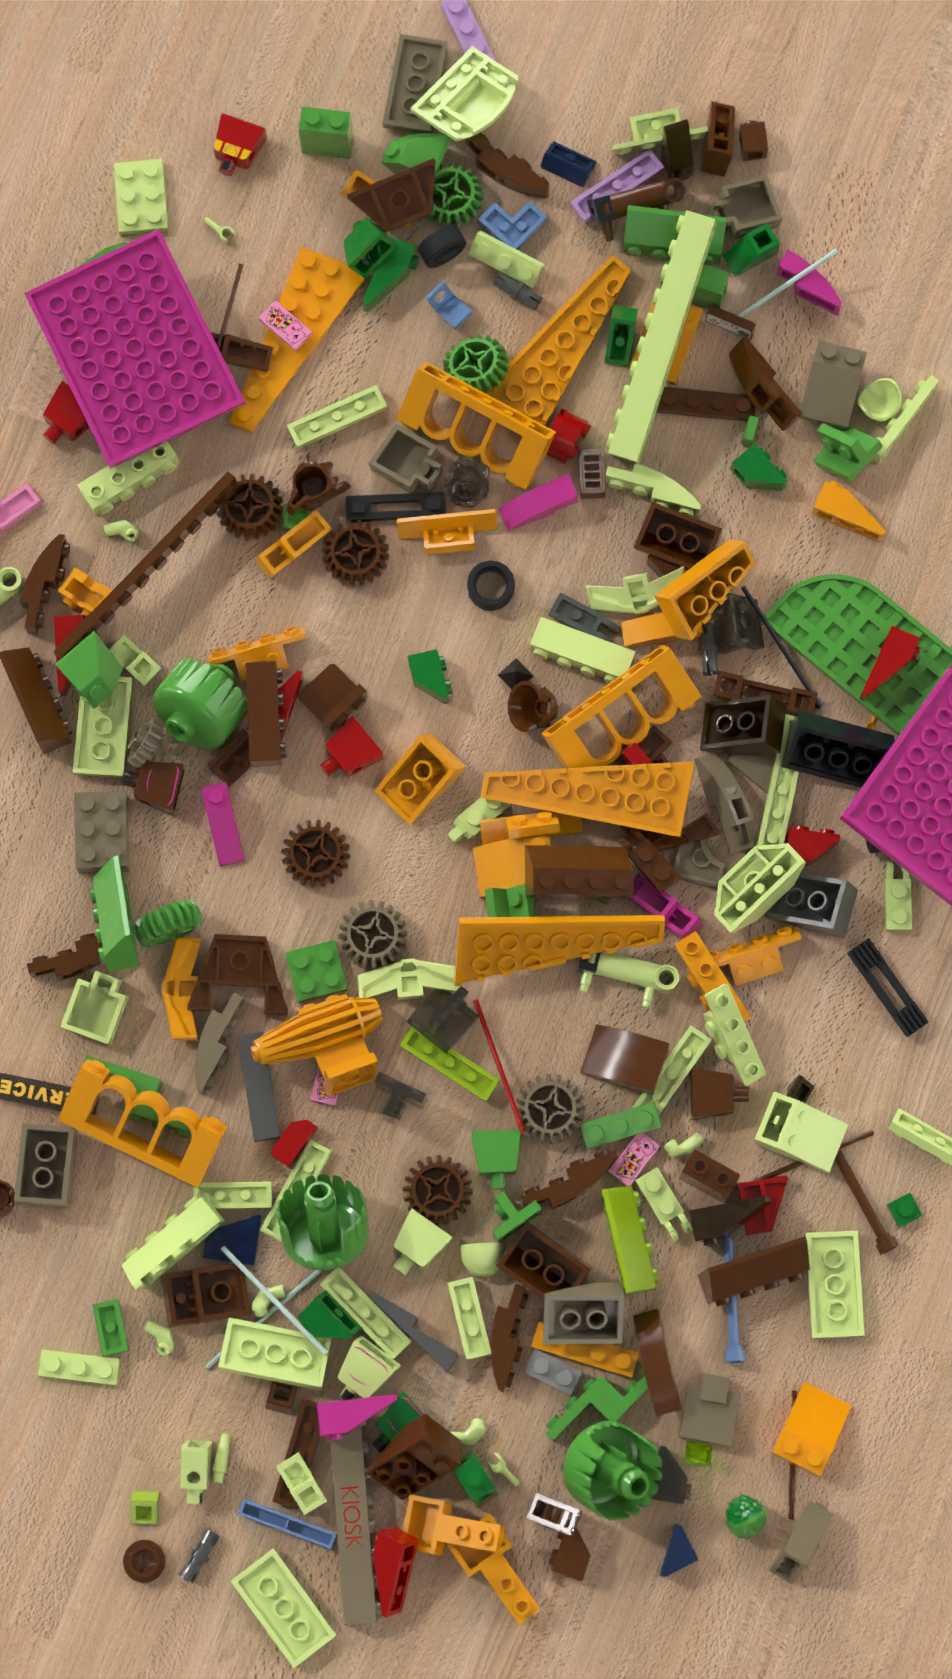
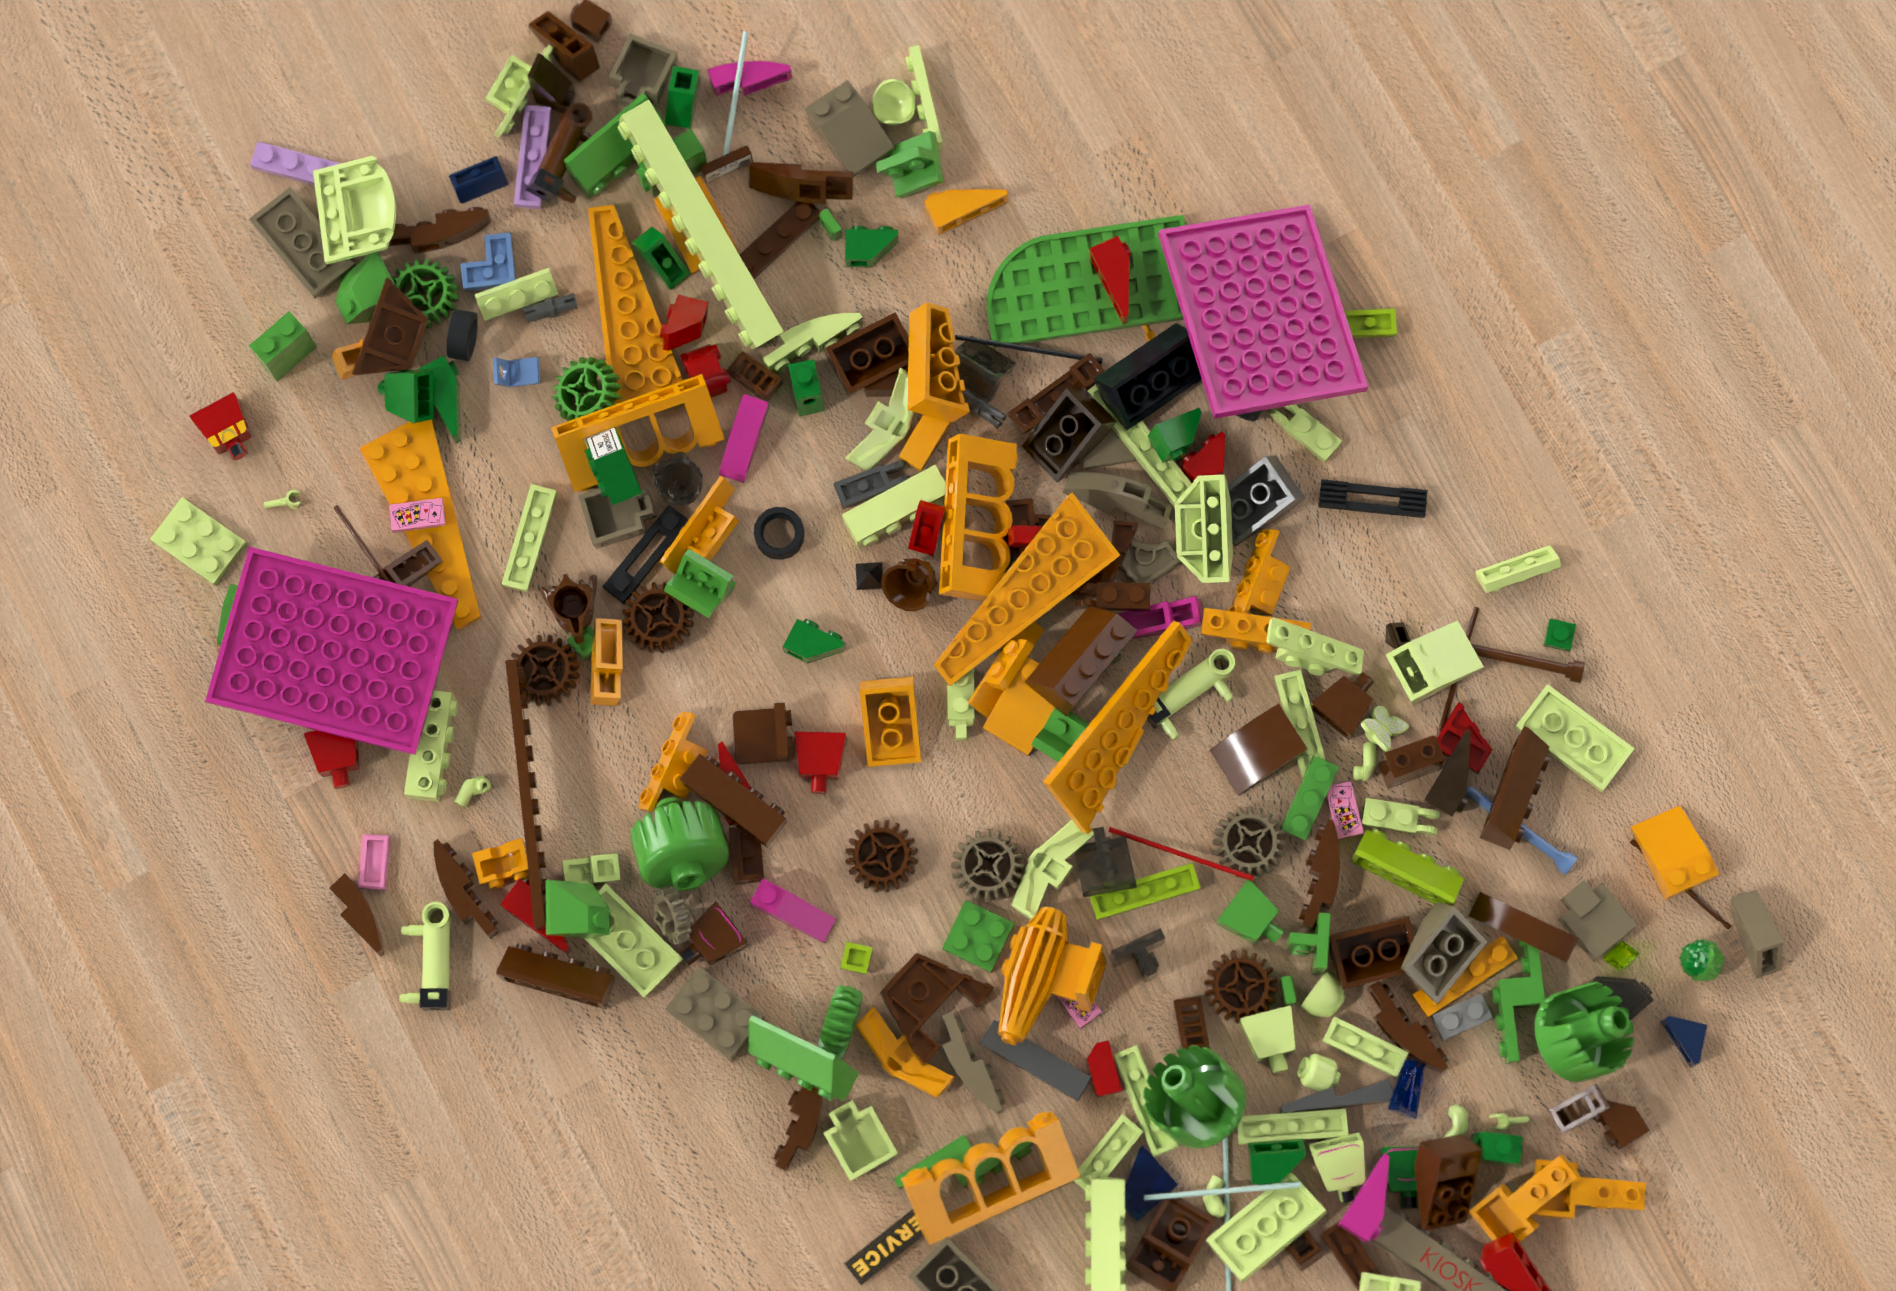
camera: 50 degrees left, 0 degrees up
(226, 897) = (856, 958): none -> lime plate
(372, 1200) = (1181, 1026): none -> reddish brown slope
(403, 561) = (700, 584): none -> bright green bracket
(421, 1299) = (1318, 1072): none -> yellowish green head
(432, 426) = (612, 466): none -> green brick
(462, 1375) = (1408, 1090): none -> clear blue wing
(463, 1227) = (1288, 990): none -> bright green tile
(583, 684) = (926, 528): none -> red plate
(587, 390) = (685, 322): none -> red slope
(615, 512) = (806, 386): none -> green torso
(720, 1136) = (1382, 727): none -> yellowish green animal
(807, 804) = (1175, 435): none -> green slope

